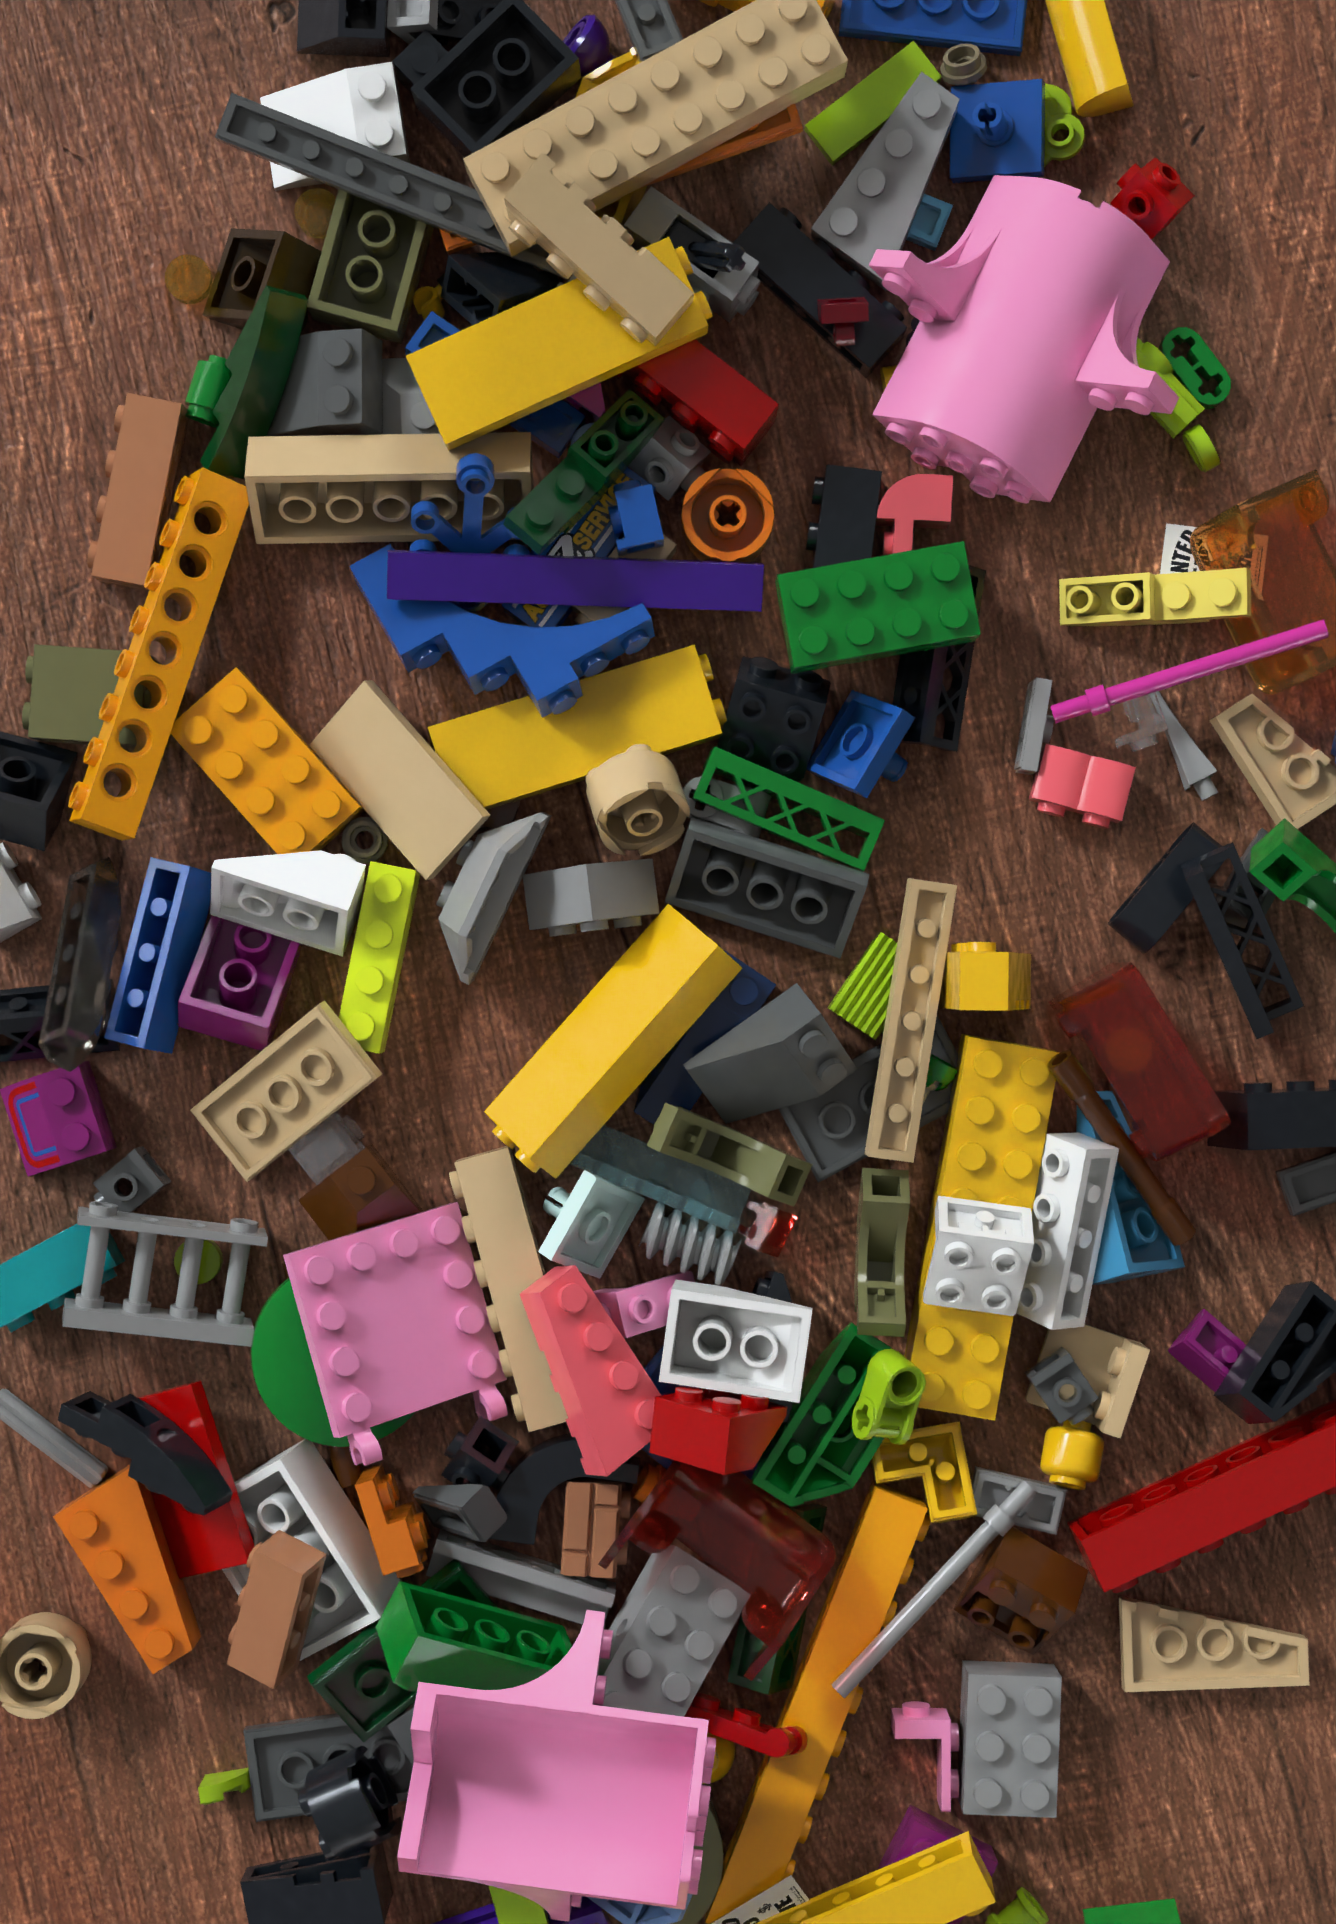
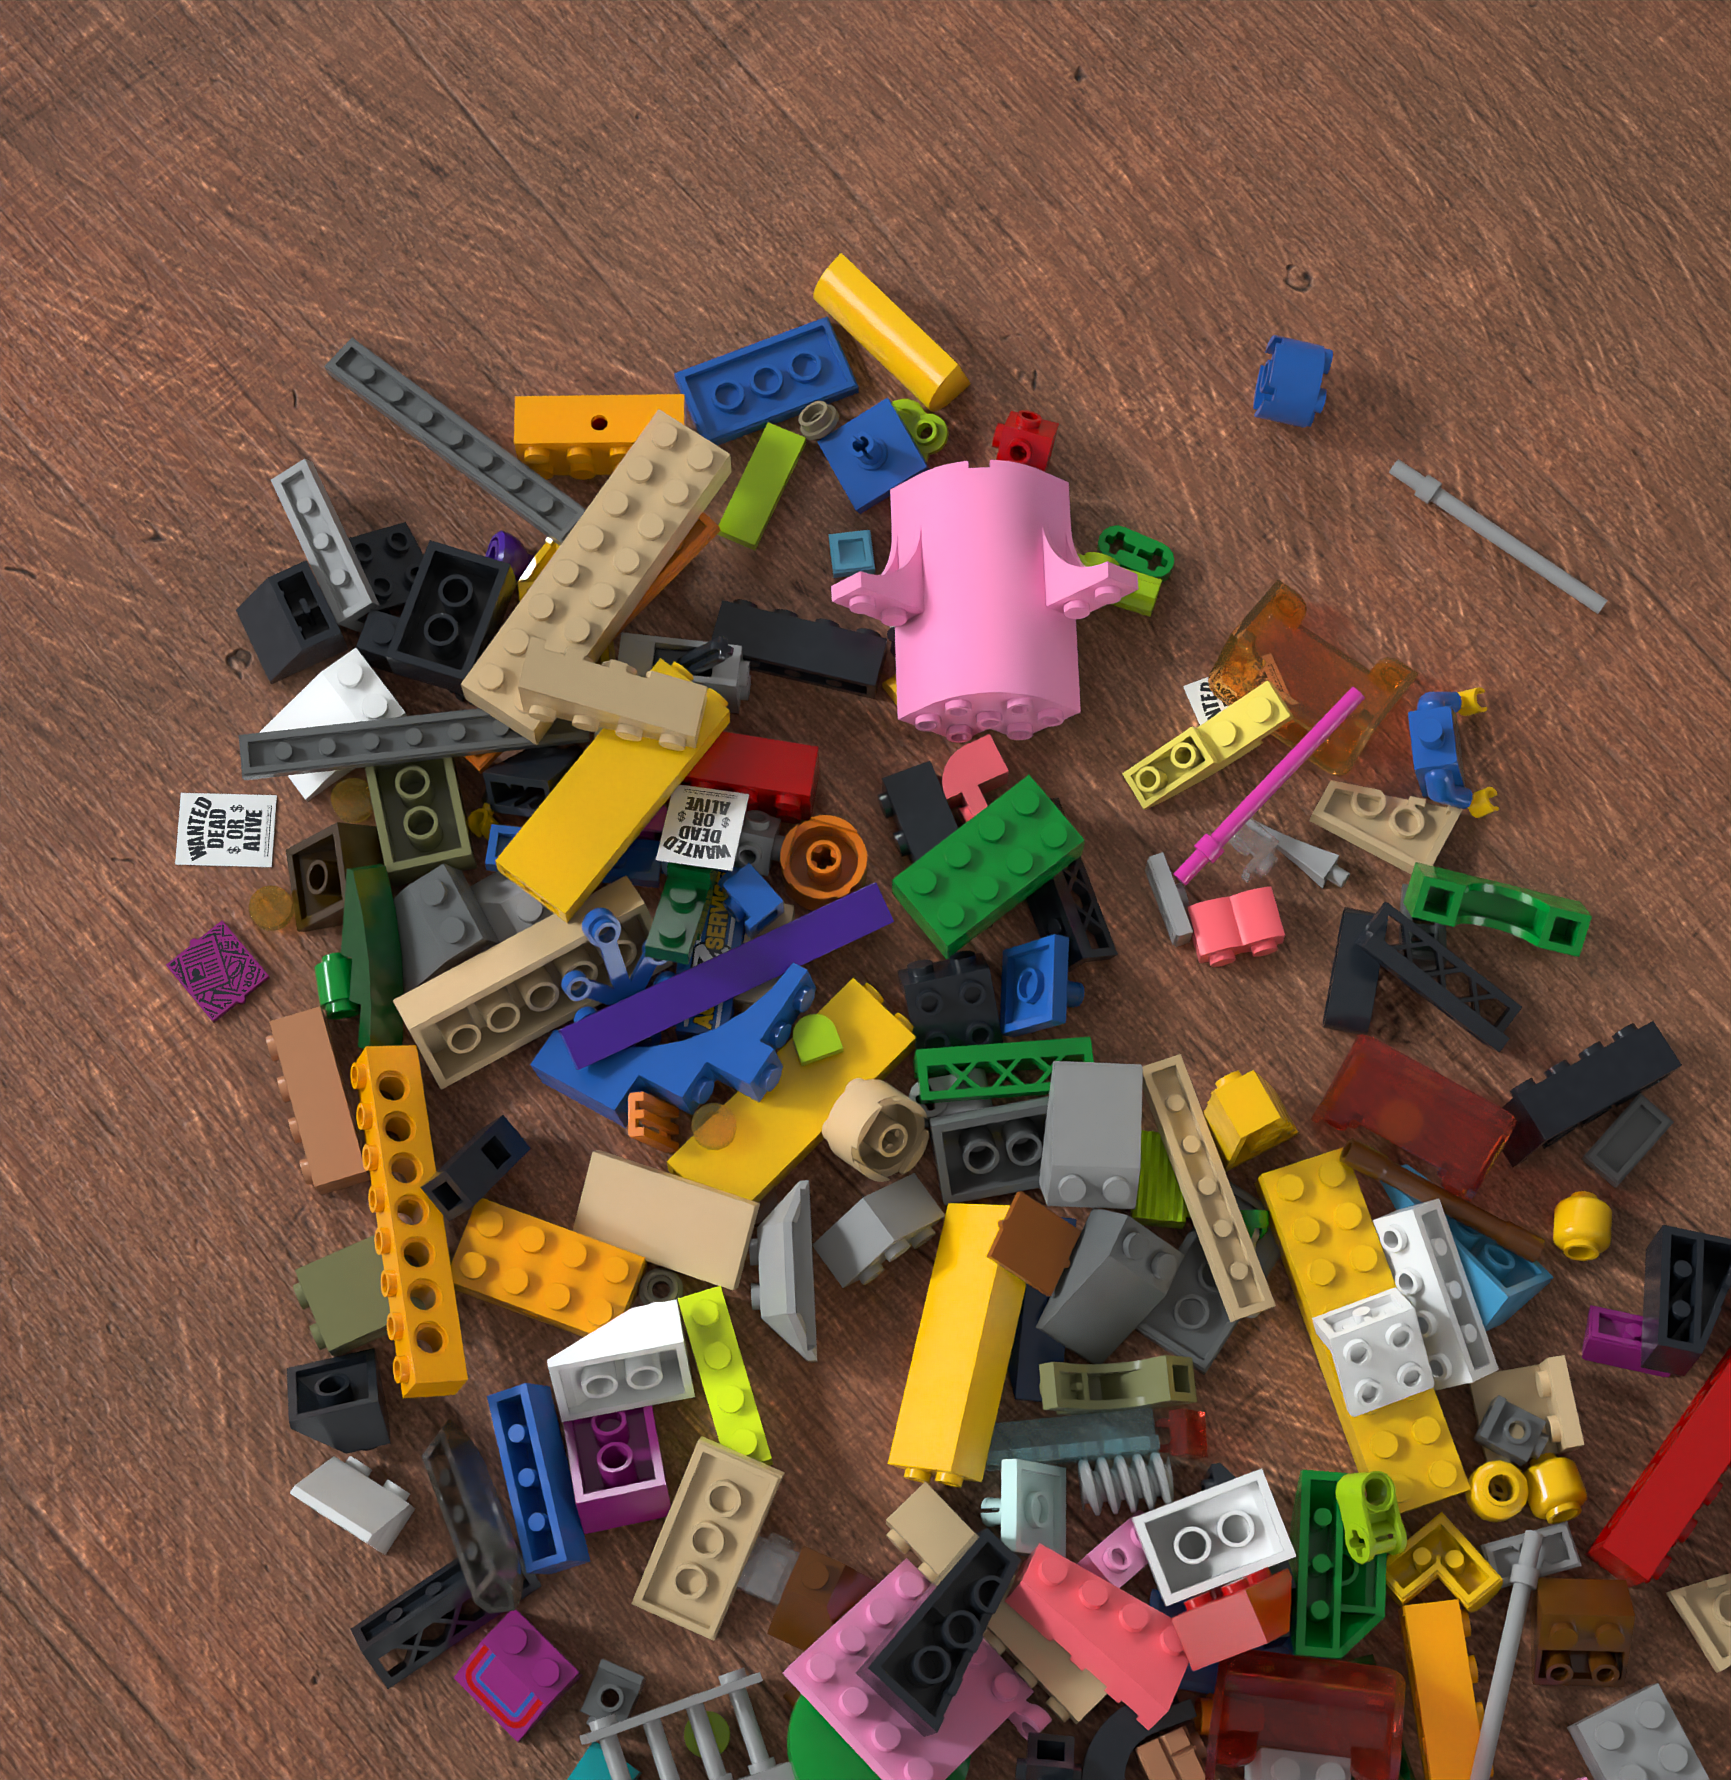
camera: 30 degrees left, 15 degrees down
(109, 314) = (217, 971): none -> magenta piece
(185, 177) = (226, 830): none -> white sticker
(247, 638) = (475, 1168): none -> black brick
(444, 1296) = (932, 1645): none -> black wedge
(446, 688) = (652, 1114): none -> orange tile
(487, 718) = (714, 1126): none -> clear yellow tile
(624, 426) = (702, 827): none -> white sticker
(626, 685) = (815, 1039): none -> lime tile
(720, 990) = (1033, 1243): none -> dark orange piece
(832, 918) = (1092, 1135): none -> light grey slope
(843, 314) = (831, 654): dark red tile -> none
(881, 1252) = (1290, 1399): olive arch -> none
(889, 180) = (809, 536): light grey wedge -> none
(1029, 1442) = (1507, 1480): none -> yellow head
(1201, 448) = (1177, 612): lime tile -> none
(1238, 1236) = (1582, 1226): none -> yellow head

